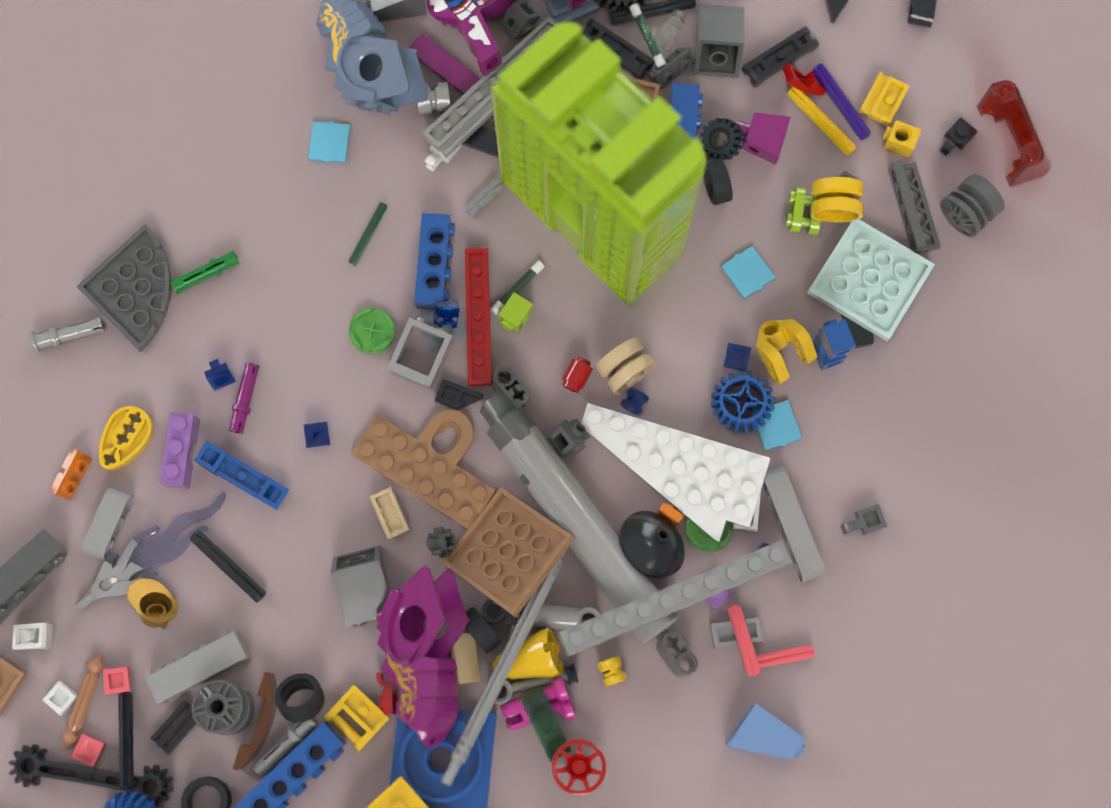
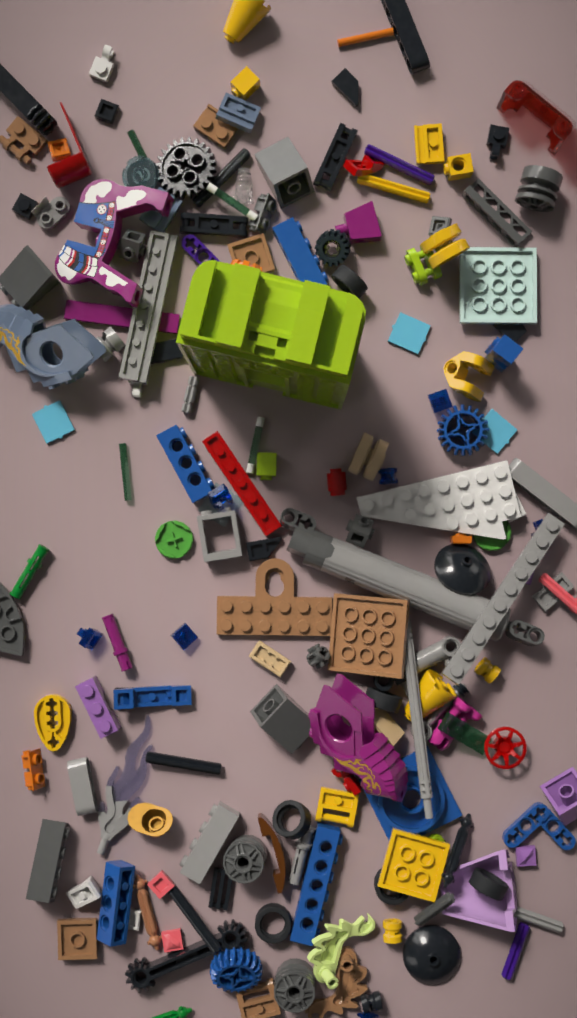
camera: 25 degrees left, 10 degrees up
(56, 668) = (116, 903): none -> blue brick

